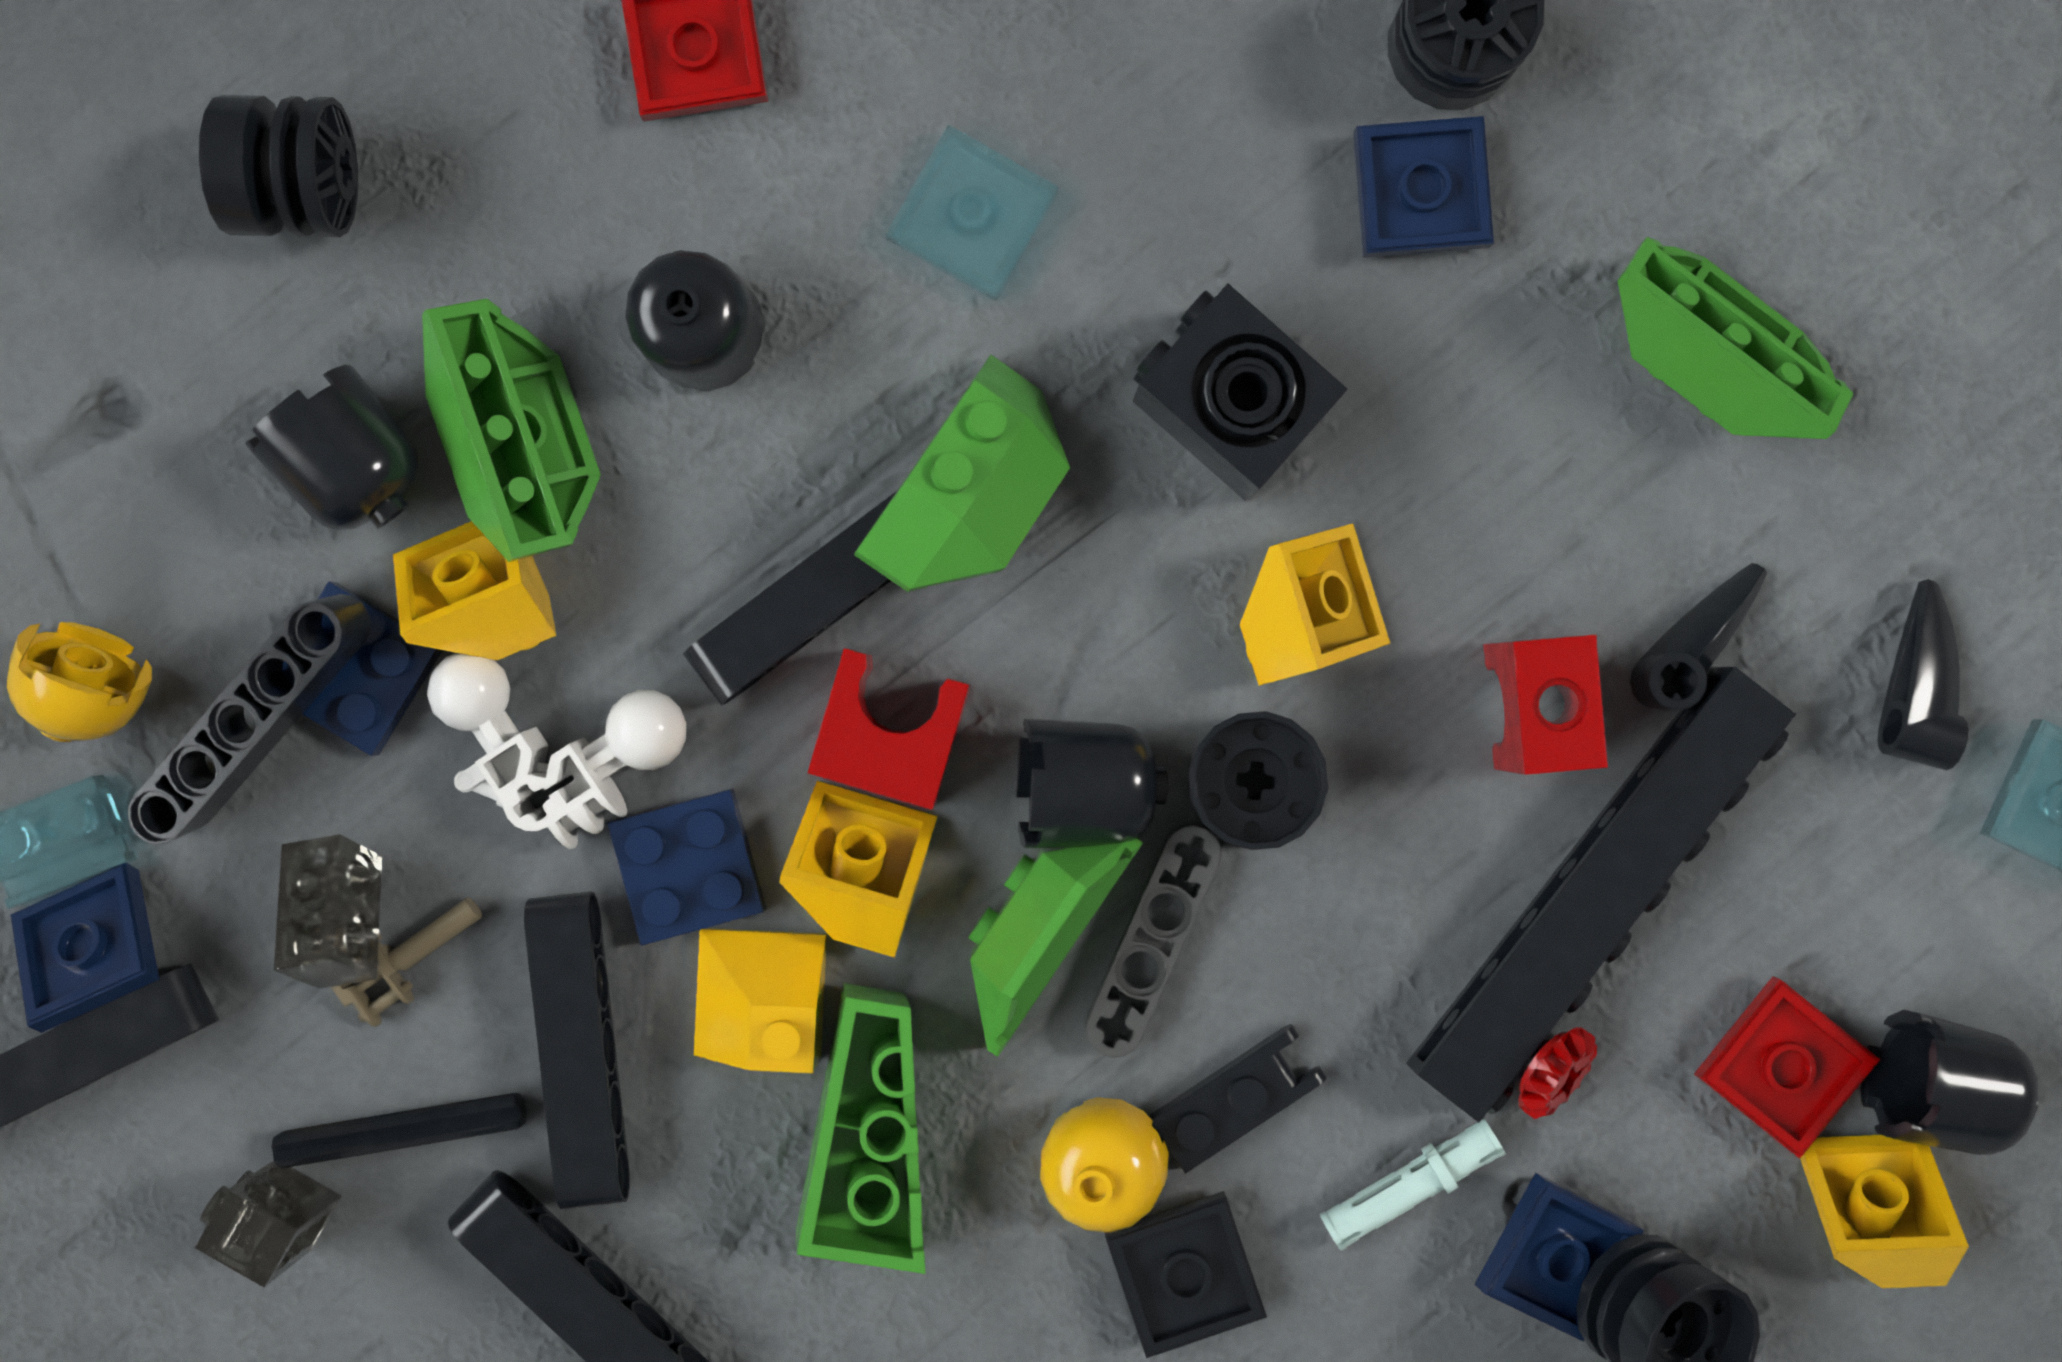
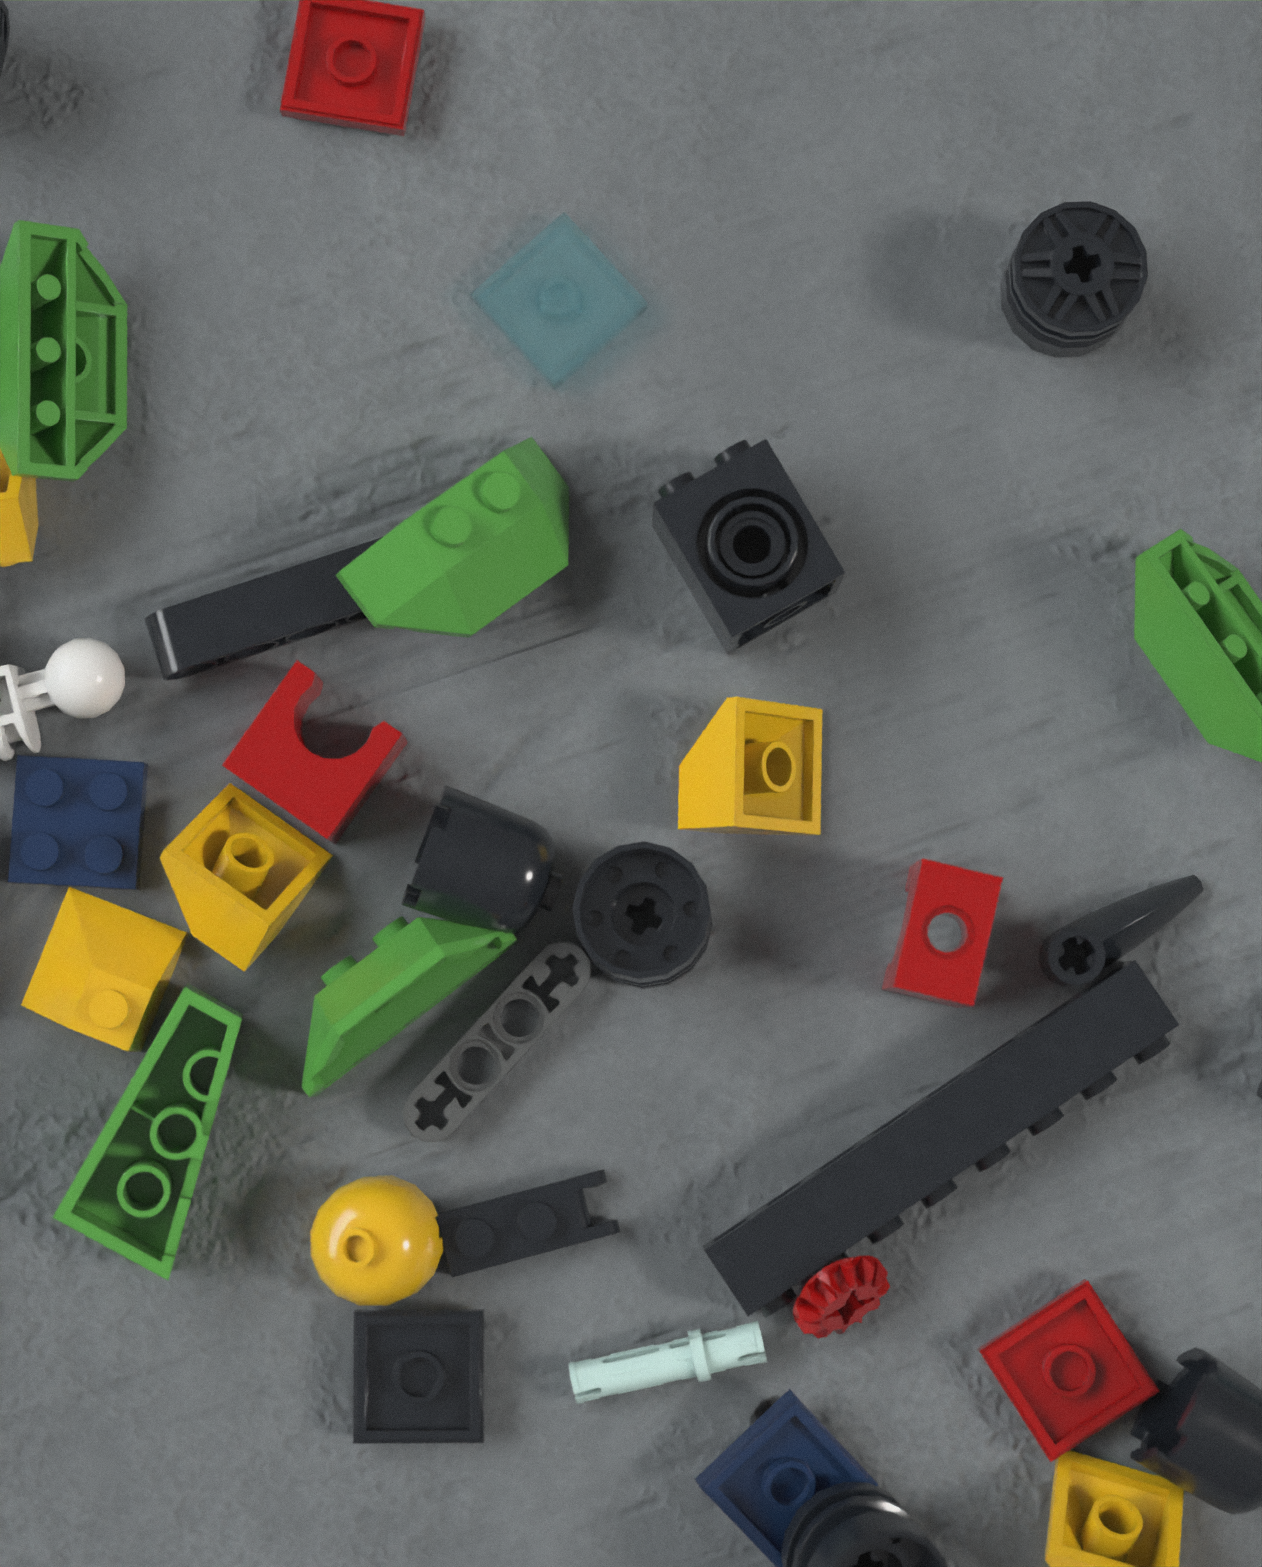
camera: 20 degrees right, 5 degrees down
(717, 335) = (276, 334): black cylinder -> none
(1423, 186) = (991, 415): dark blue plate -> none

